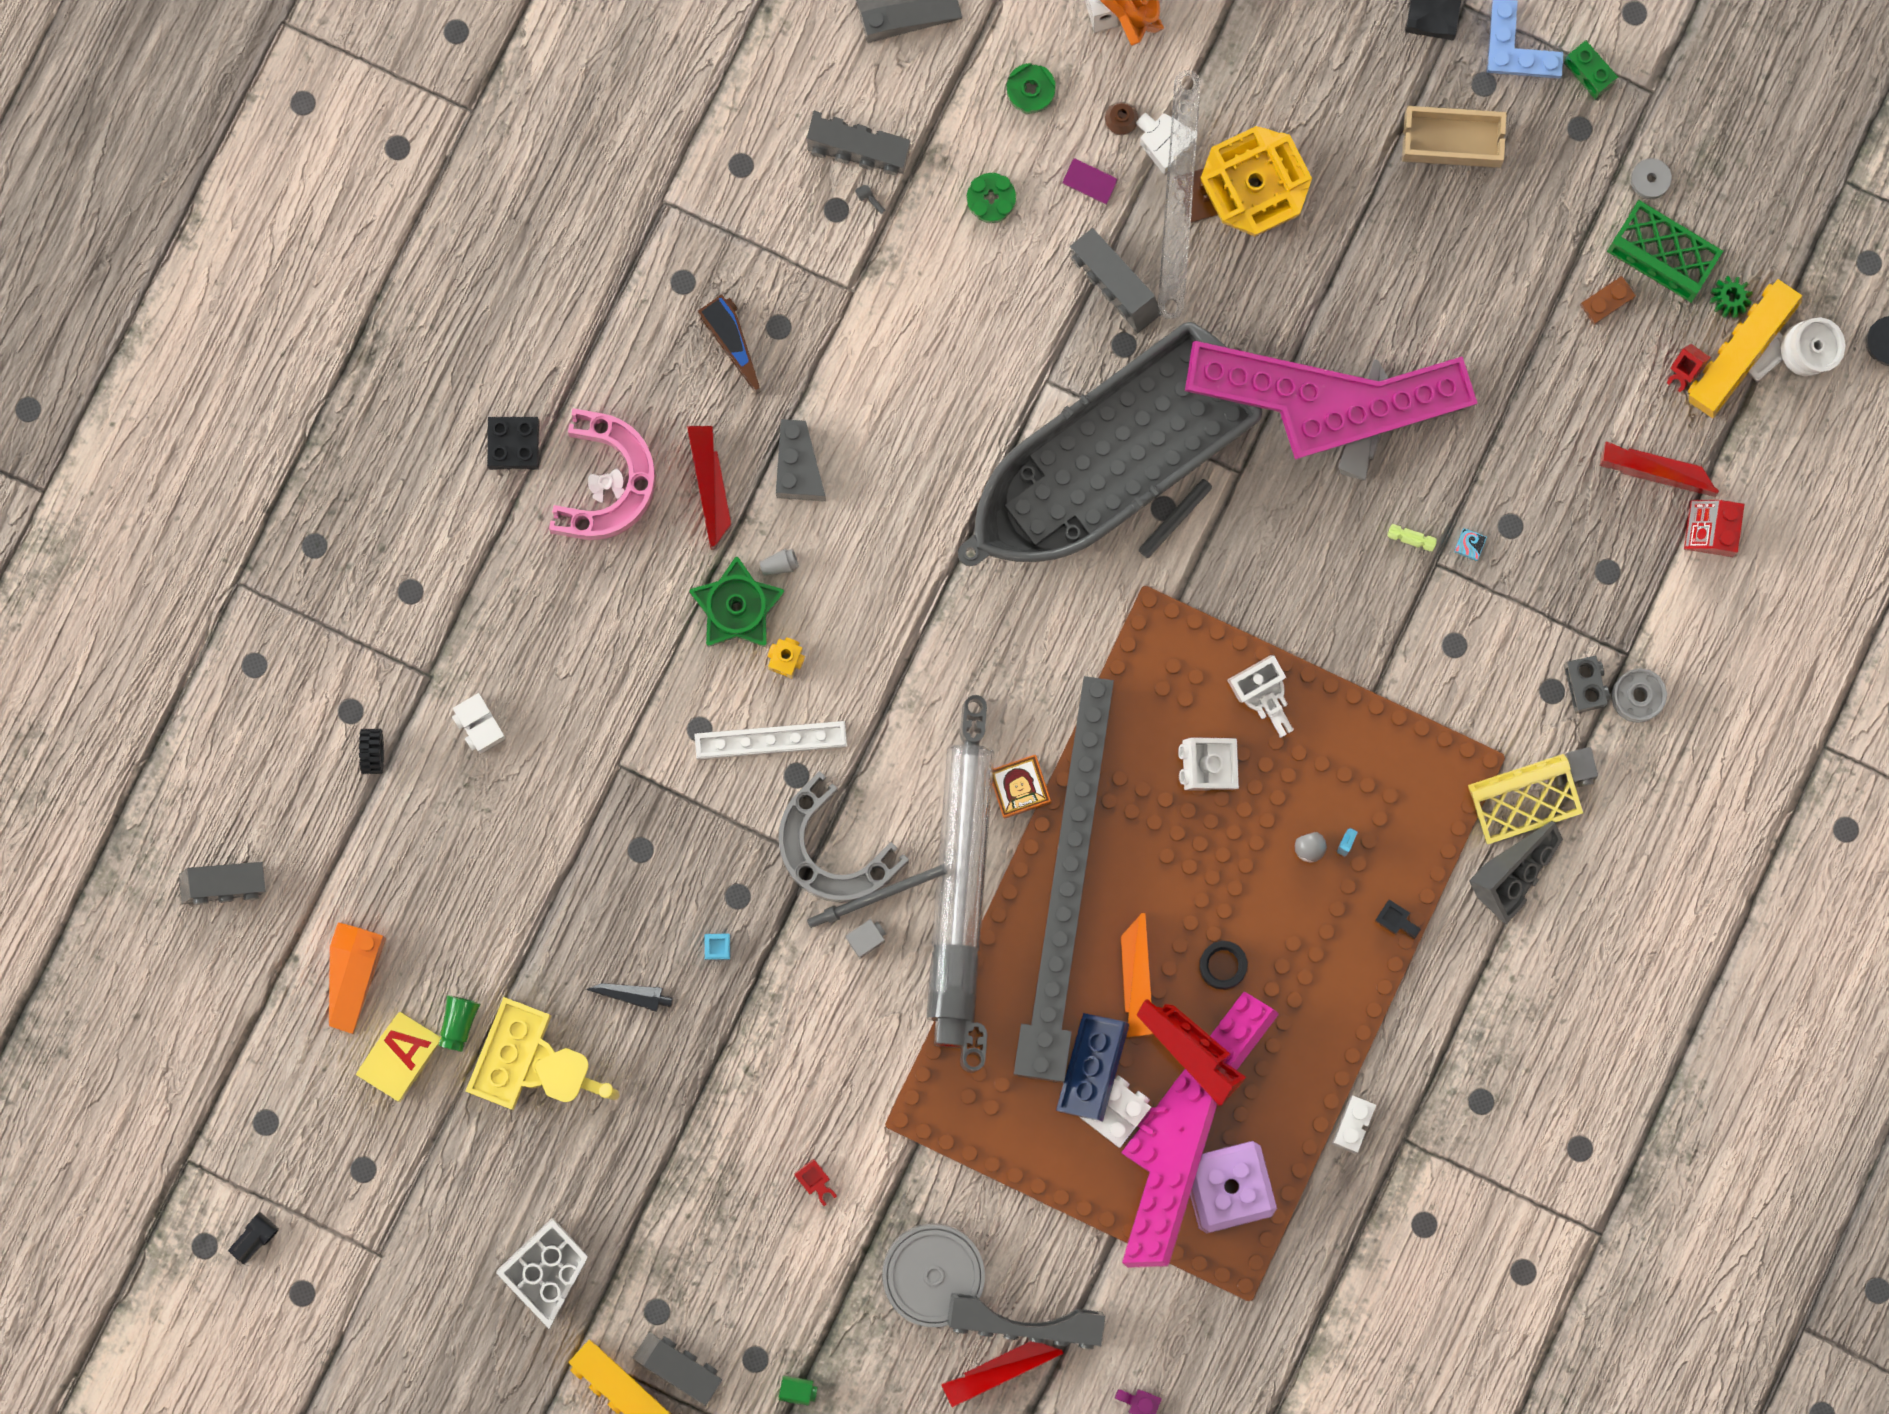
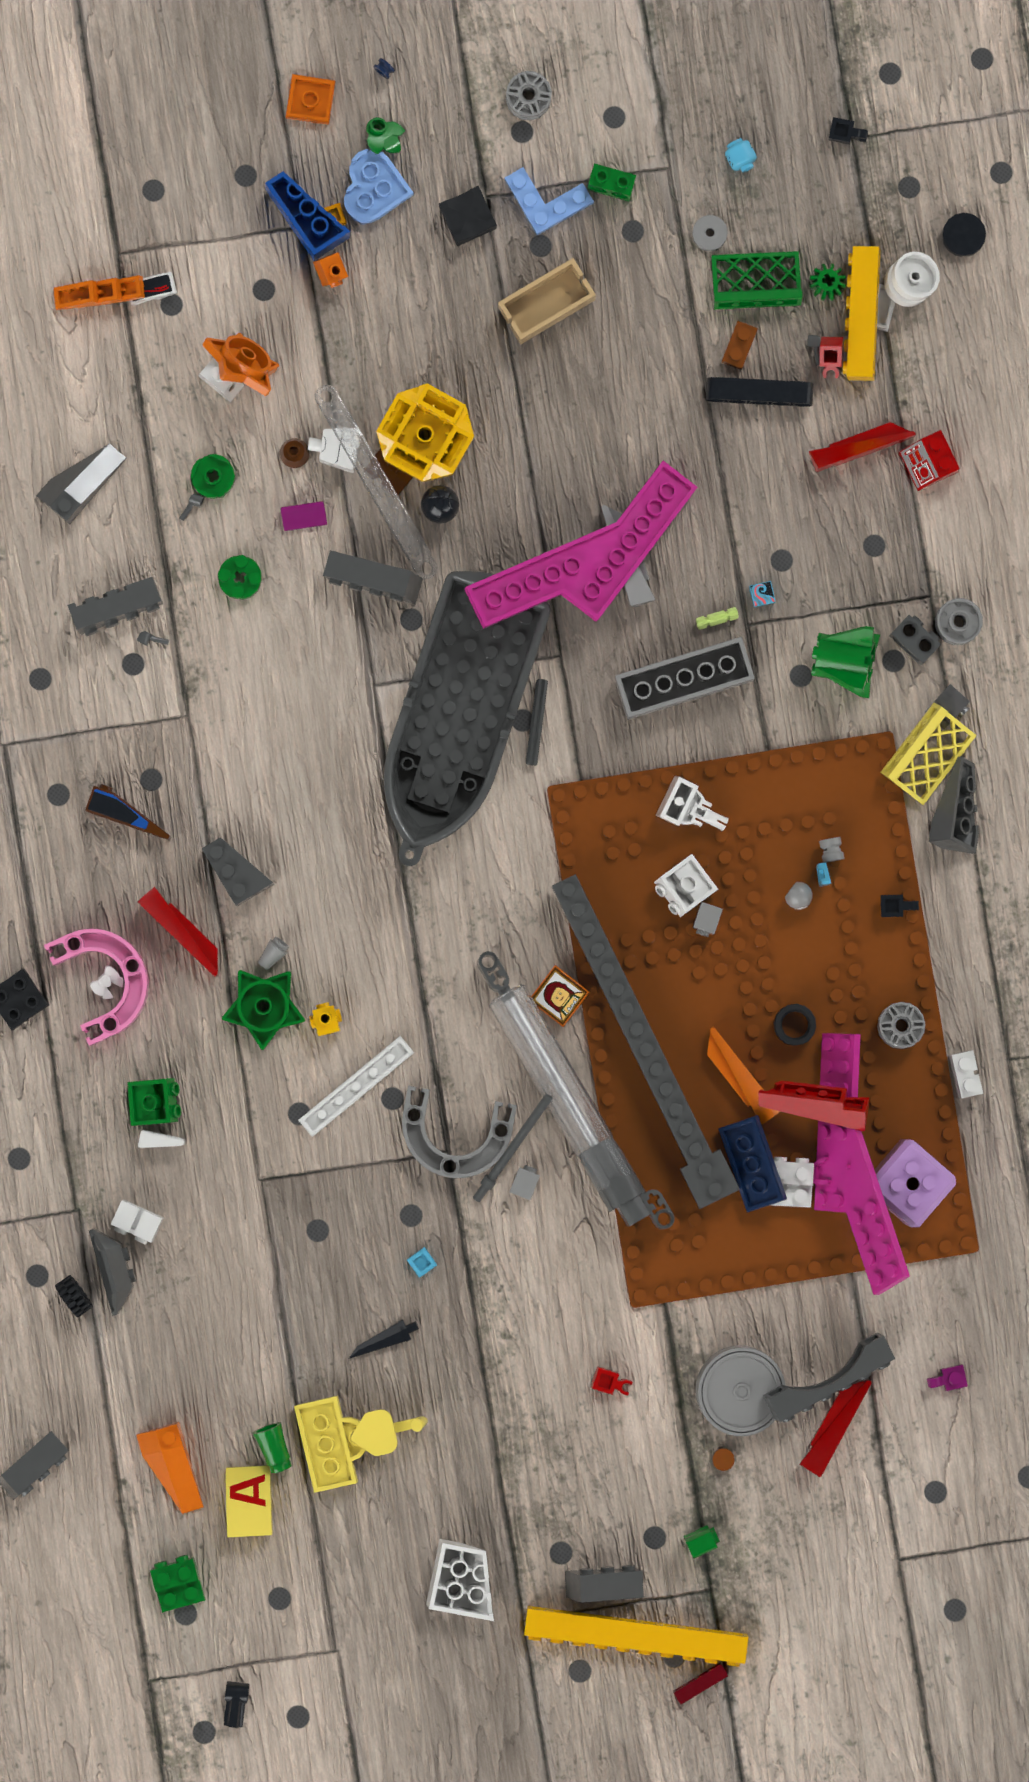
camera: 35 degrees left, 5 degrees up
(278, 1087) = (177, 1583): none -> green plate
(425, 753) = (113, 1268): none -> dark grey wedge
(547, 658) = (154, 1139): none -> white slope
(572, 623) = (153, 1101): none -> green plate
(871, 1330) = (723, 1459): none -> dark orange tile
(998, 98) = (194, 500): none -> dark grey hand
(1208, 809) = (707, 919): none -> light grey brick
(1224, 255) = (440, 504): none -> black piece
(1339, 1032) = (887, 1025): none -> light grey wheel
(1342, 571) = (684, 678): none -> light grey brick
(1371, 825) = (831, 848): none -> light grey wheel
(1509, 656) = (847, 658): none -> green brick
(1597, 355) = (759, 391): none -> black beam
(1679, 343) = (814, 341): none -> dark grey hand
(1729, 126) = (740, 155): none -> medium azure head
(1843, 169) = (843, 131): none -> black plate

